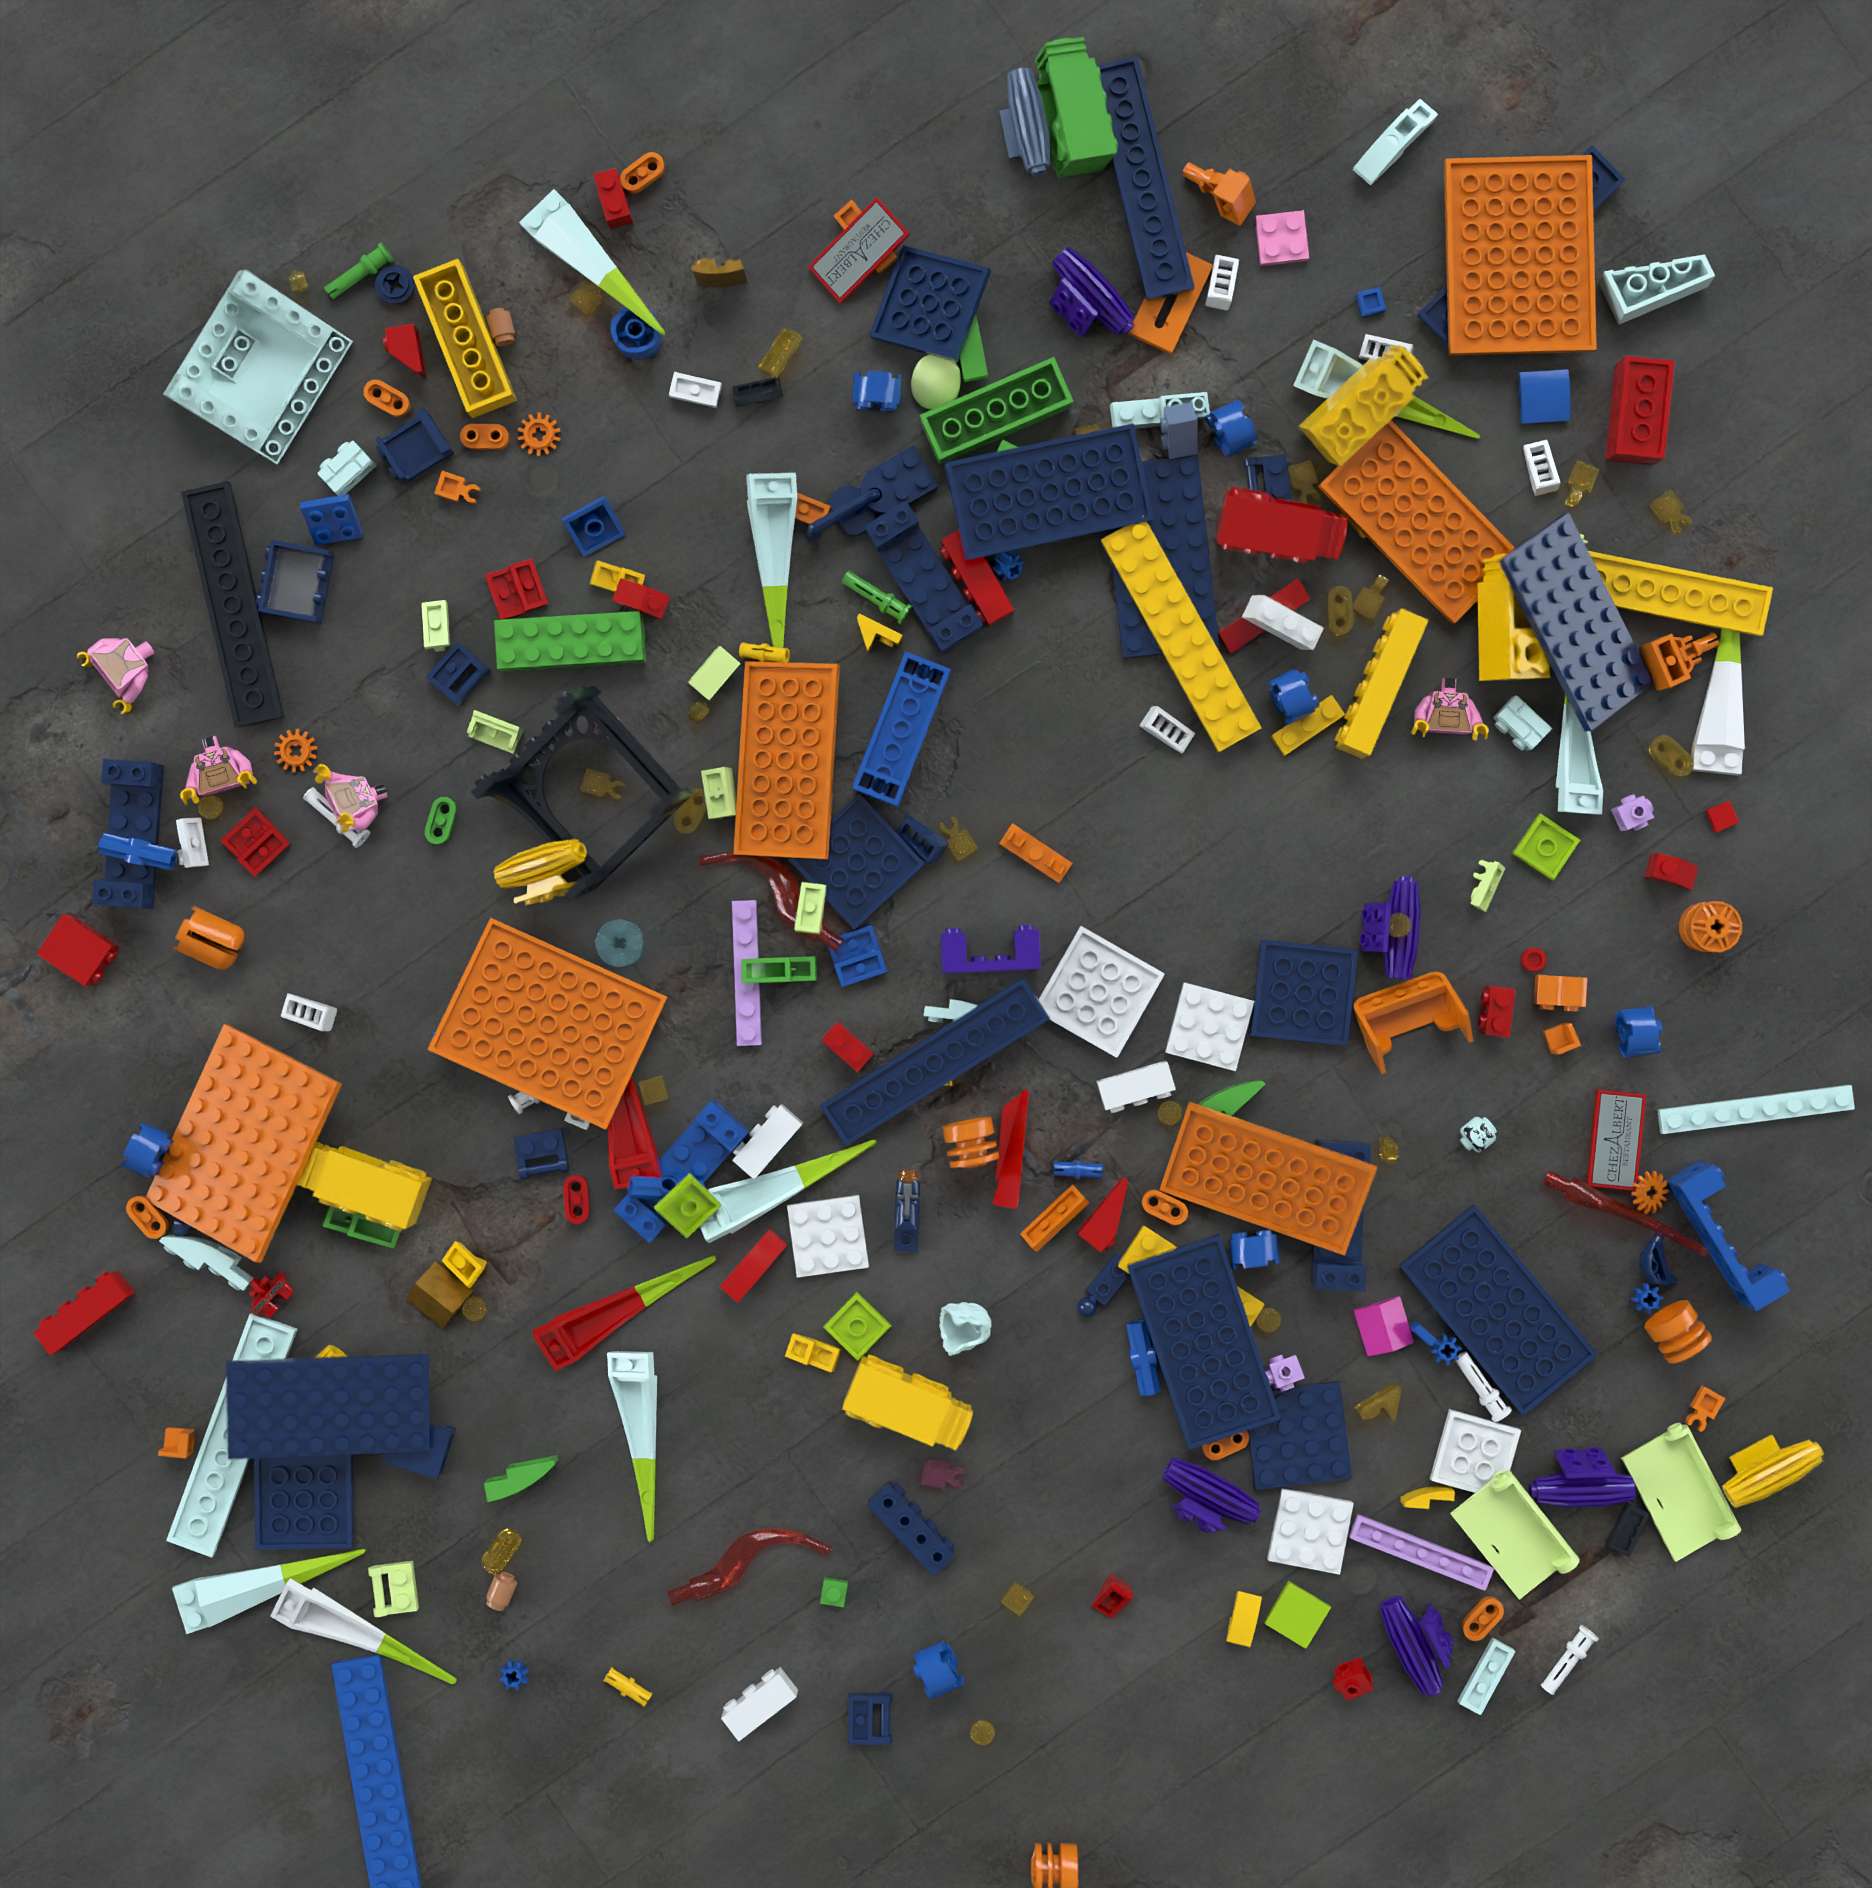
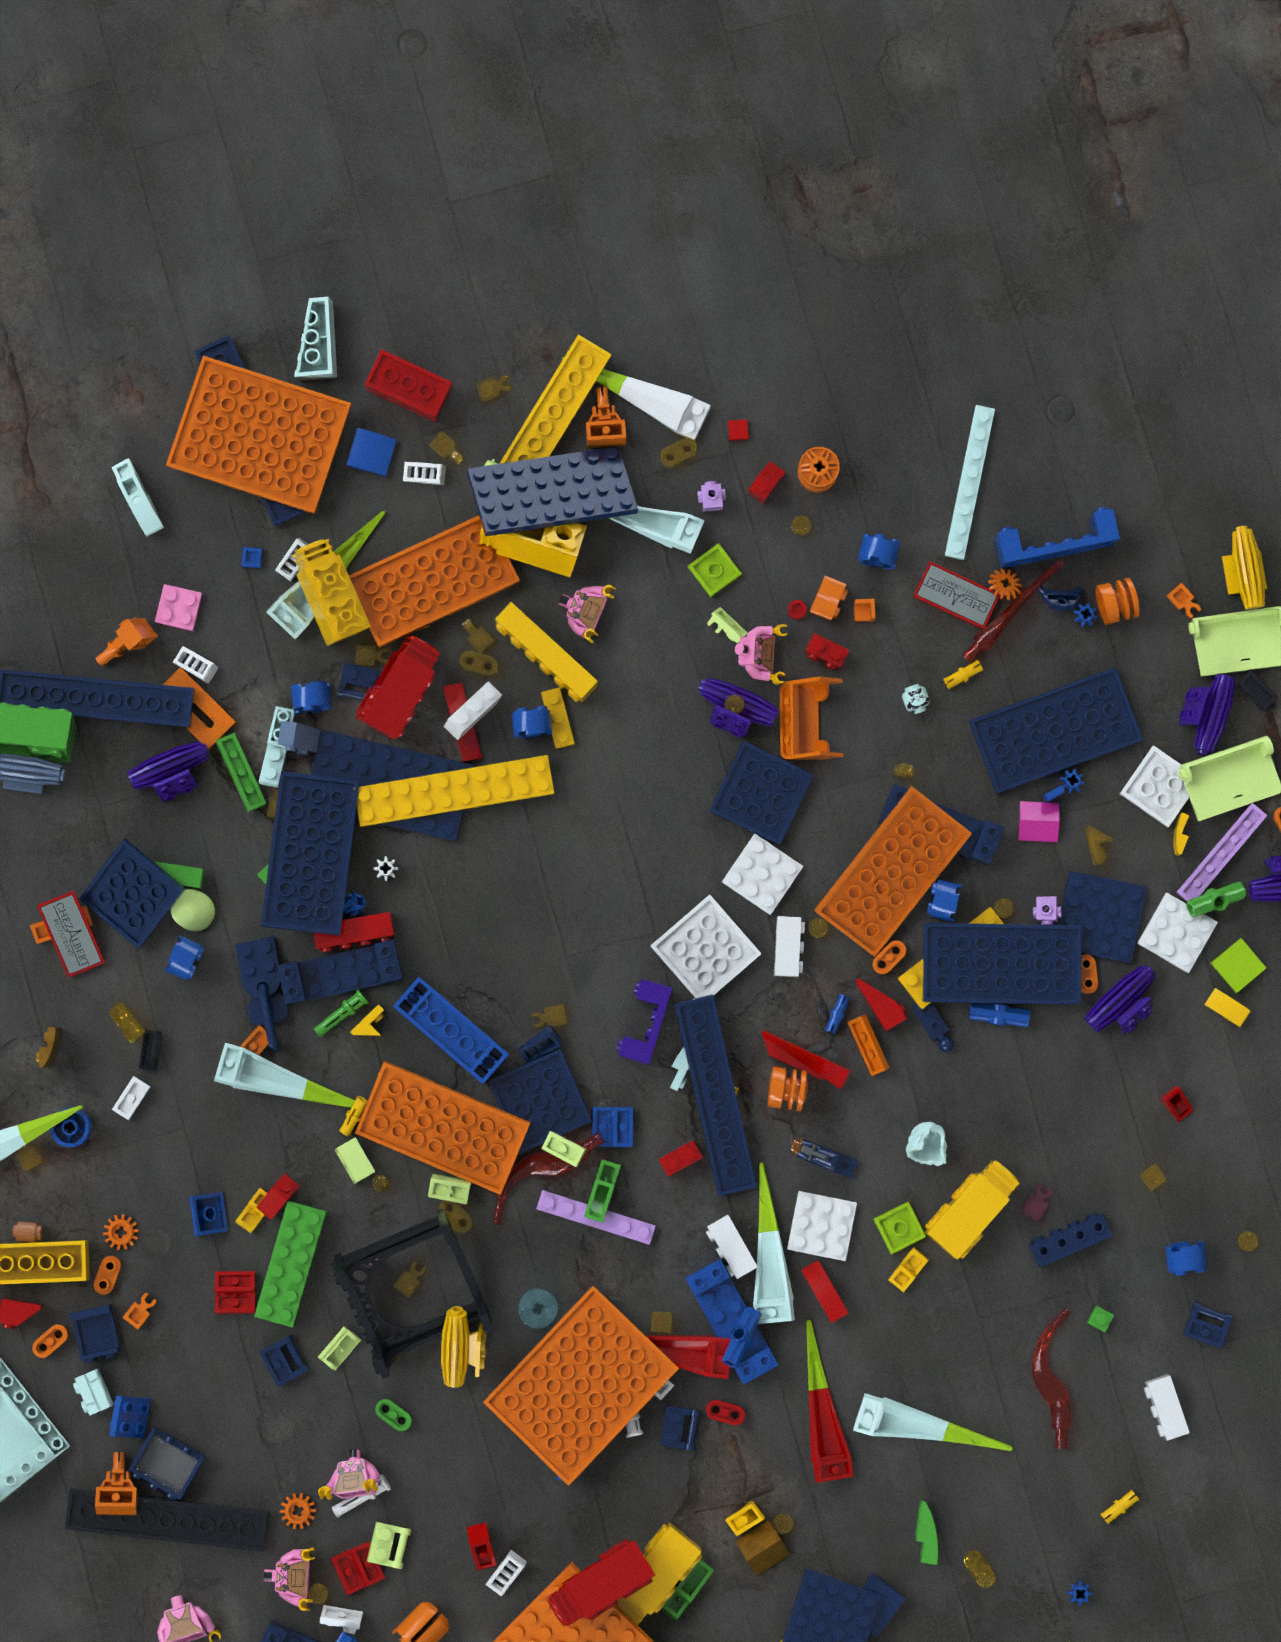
camera: 75 degrees left, 5 degrees down
(239, 536) = (117, 1494): none -> orange brick
(290, 860) = (382, 1544): none -> yellowish green plate
(323, 1128) = (597, 1587): none -> red piece
(328, 973) = (481, 1546): none -> red slope
(436, 625) = (240, 1364): yellowish green plate -> none
(501, 1591) = (1010, 1580): nougat brick -> none
(688, 1205) = (760, 1324): lime tile -> none
(996, 411) = (232, 871): bright green brick -> none
(1035, 853) = (582, 961): orange plate -> none
(1066, 582) = (382, 864): none -> white gear
(1115, 379) = (241, 772): none -> bright green plate
(1147, 723) = (512, 825): white slope -> none
(1232, 1097) = (822, 875): bright green slope -> none
(1366, 1564) = (1223, 897): none -> bright green piece
(1468, 931) = (757, 653): none -> torso
(1488, 1396) = (1119, 760): white pin -> none
(1521, 724) = (614, 556): light aqua brick -> none
(1525, 1179) = (963, 674): none -> yellow pin
(1635, 929) = (801, 525): none -> clear yellow plate

